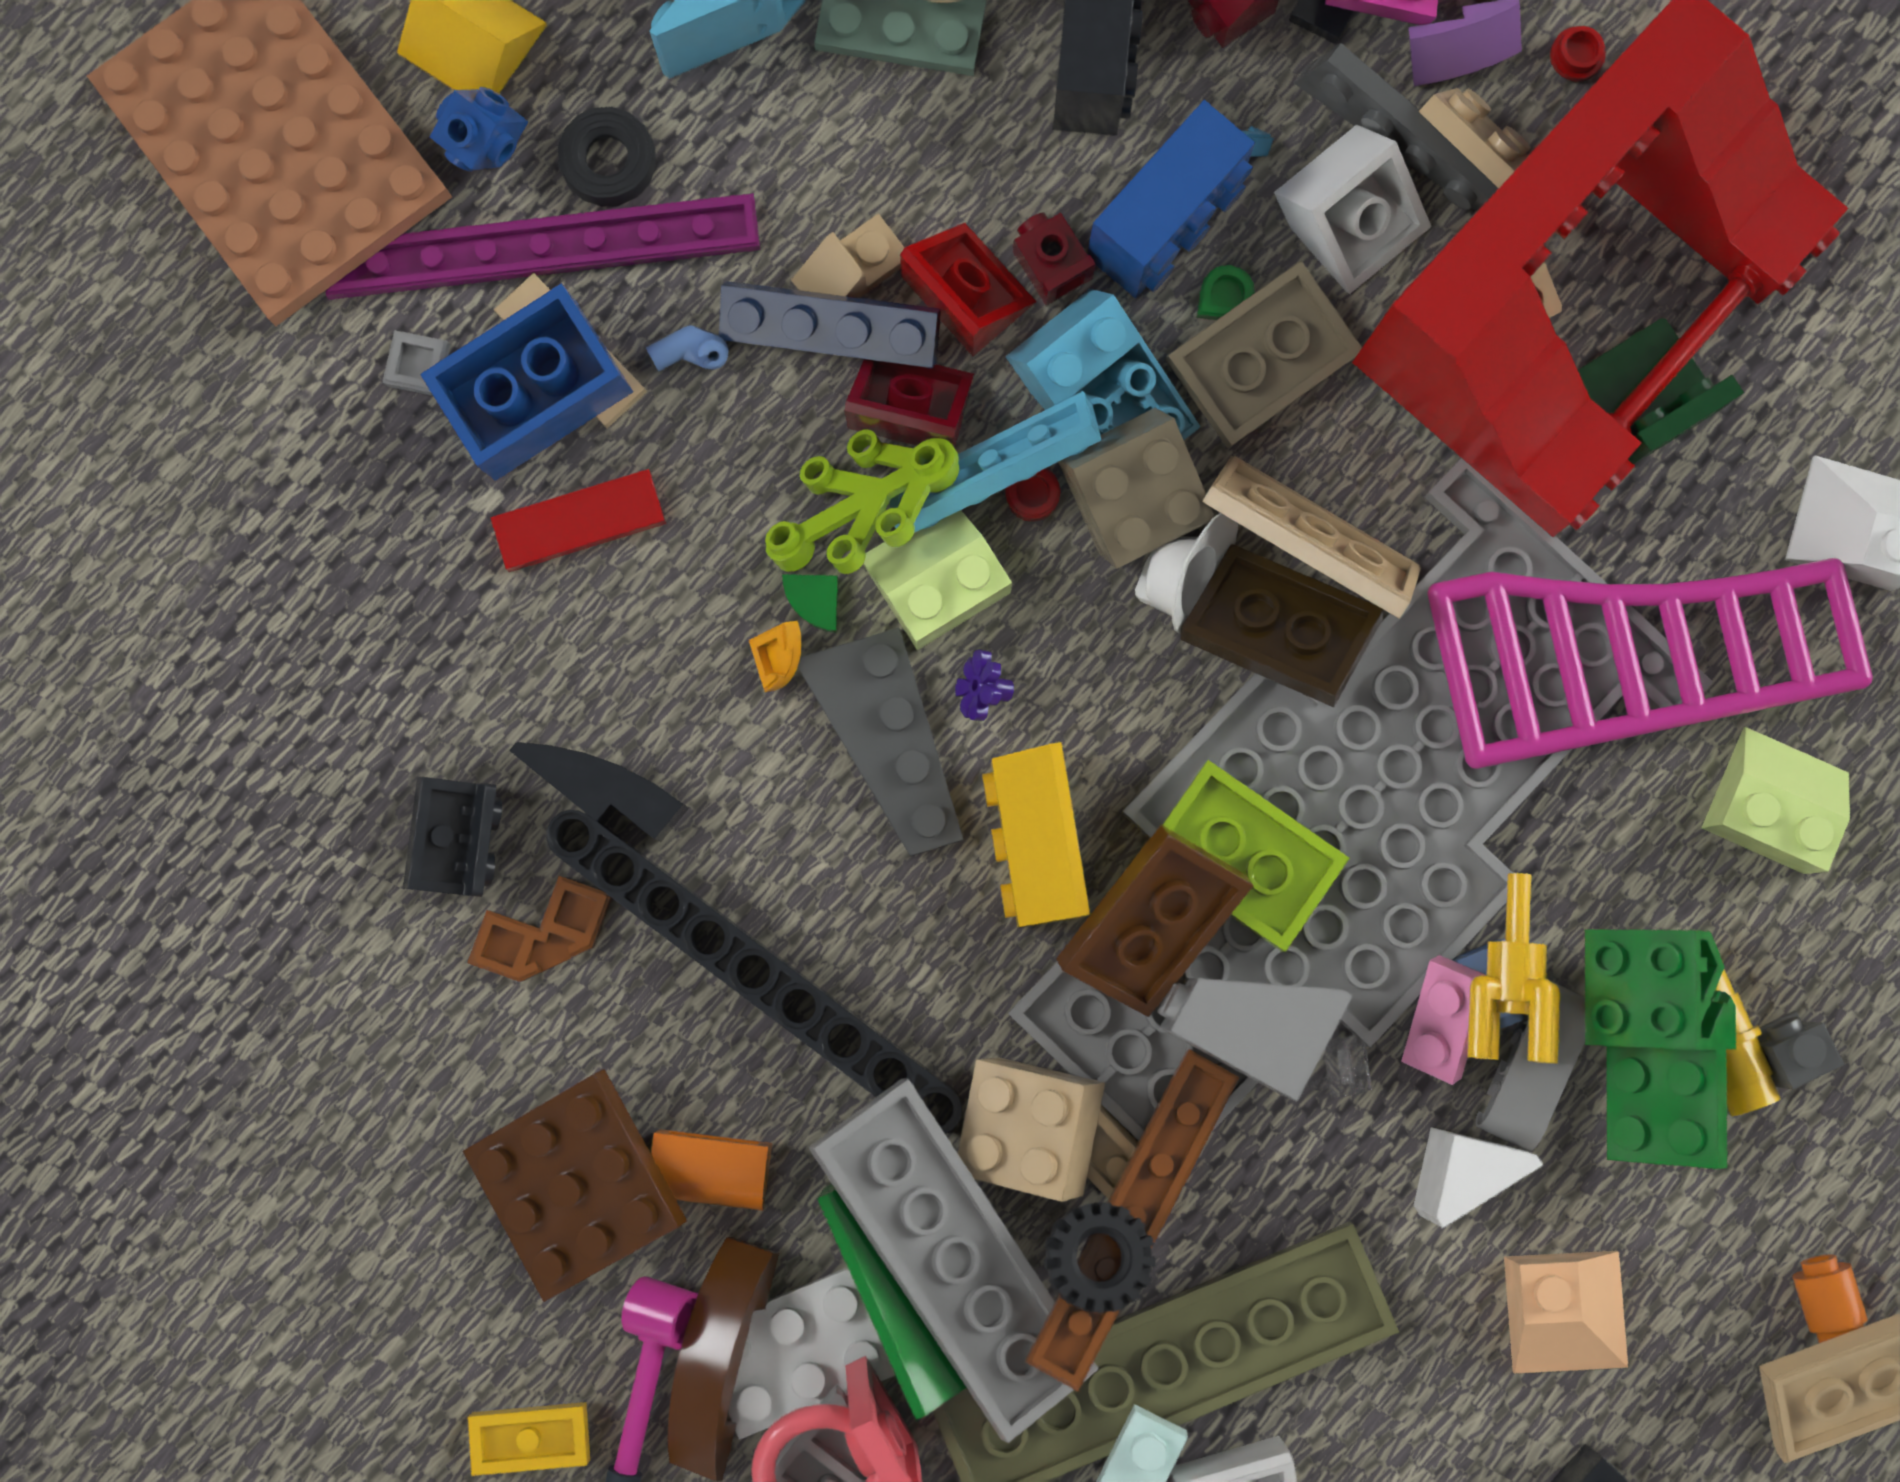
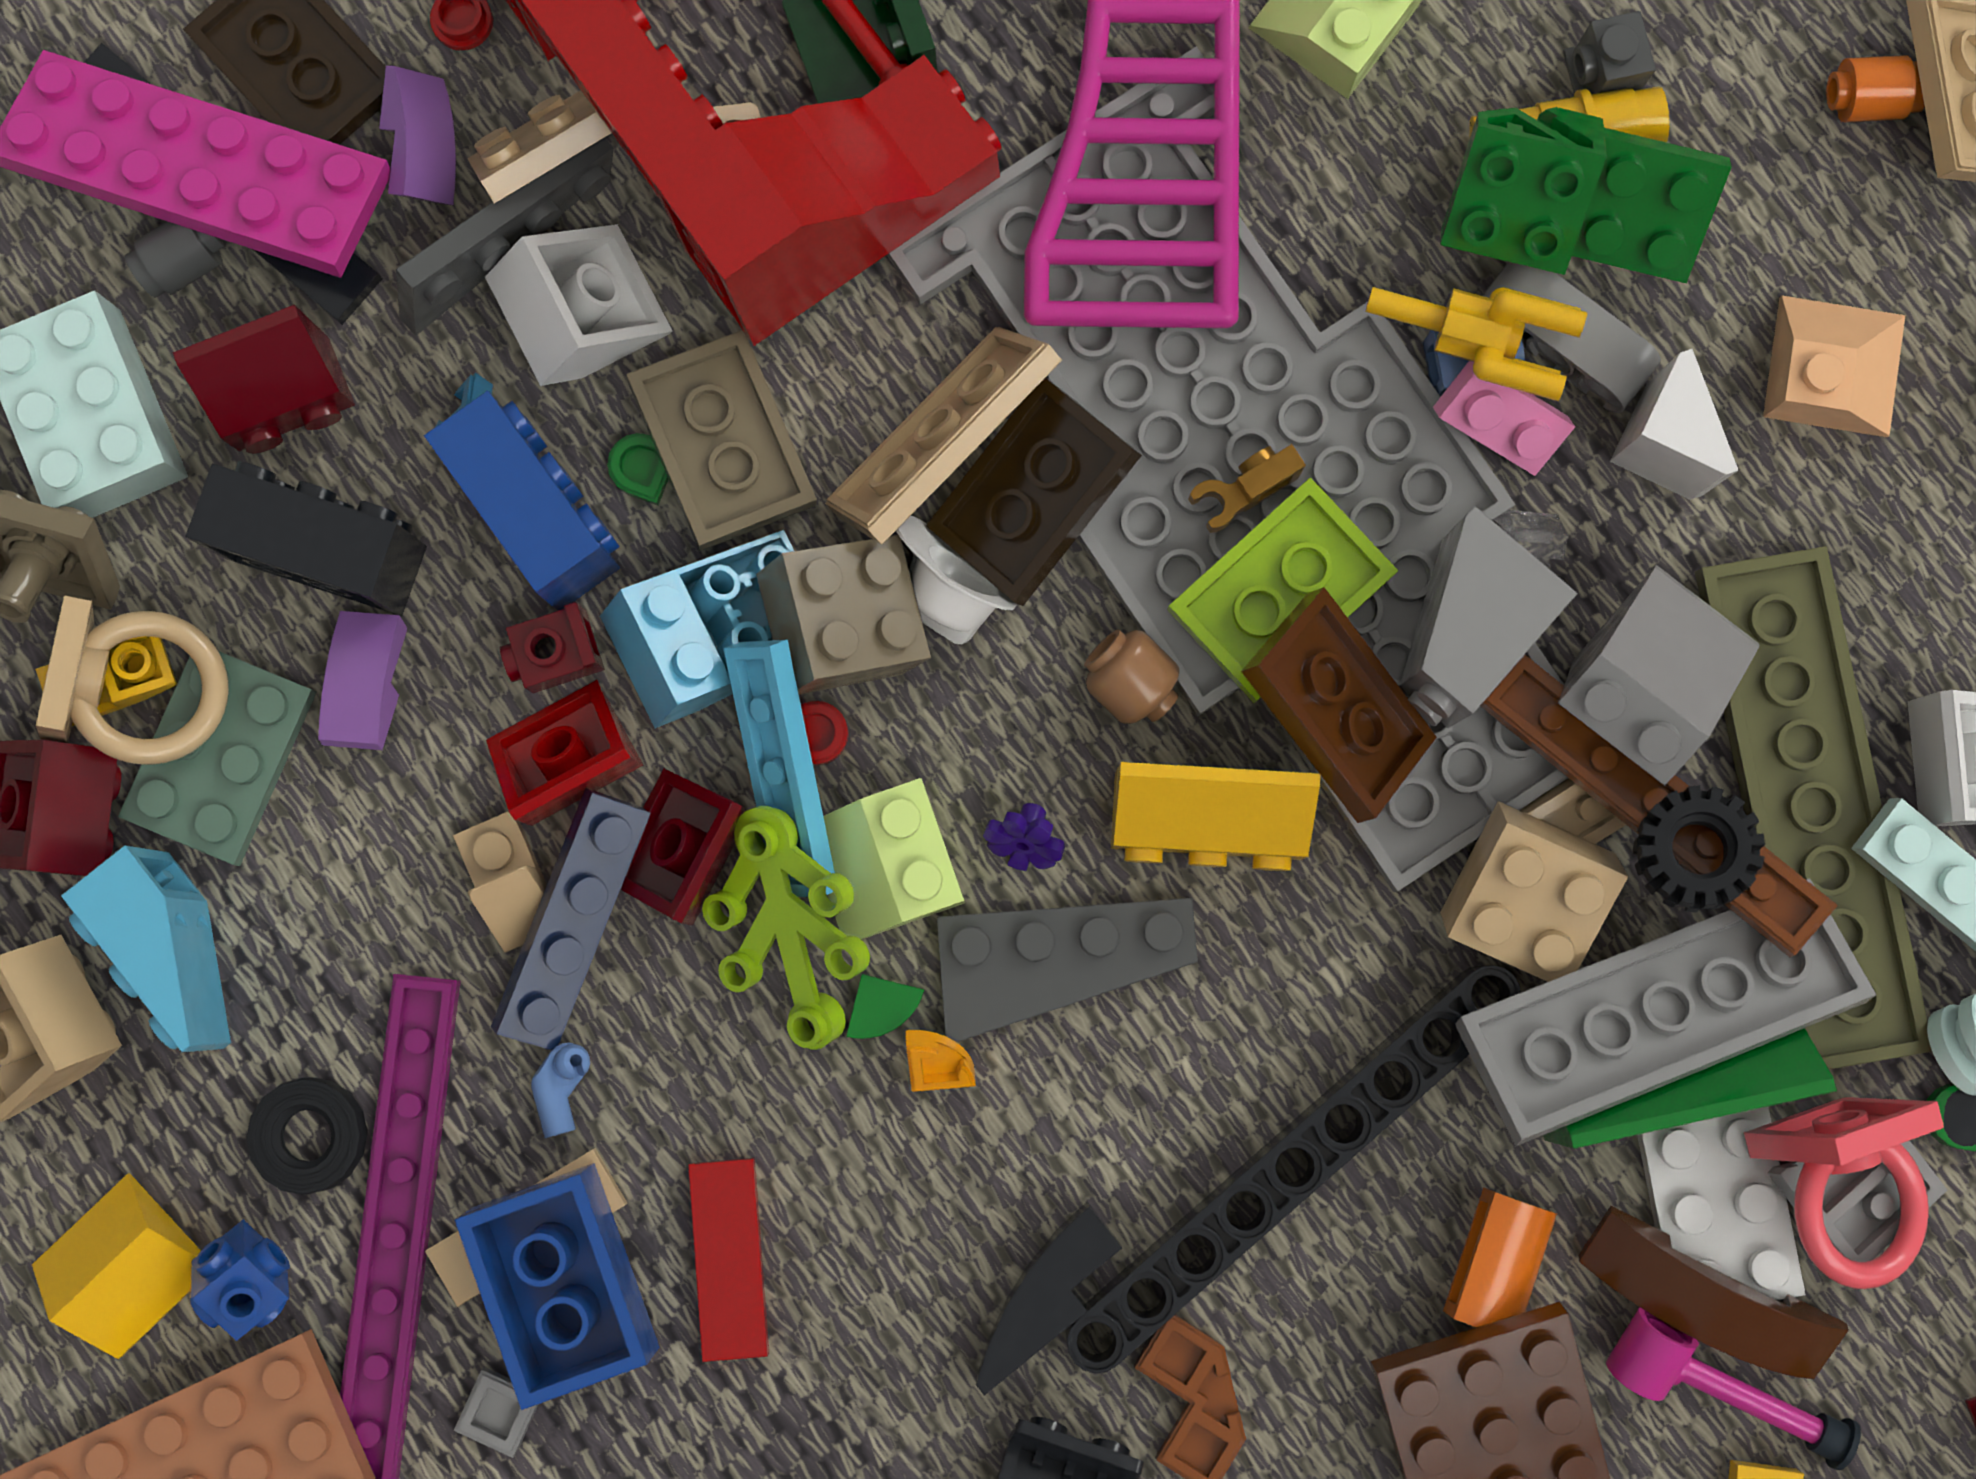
camera: 75 degrees left, 0 degrees up
(988, 104) = (358, 678): none -> medium lavender slope
(1141, 746) = (1132, 676): none -> medium nougat head
(1246, 1197) = (1658, 674): none -> light grey slope
(1339, 817) = (1261, 478): none -> pearl gold plate

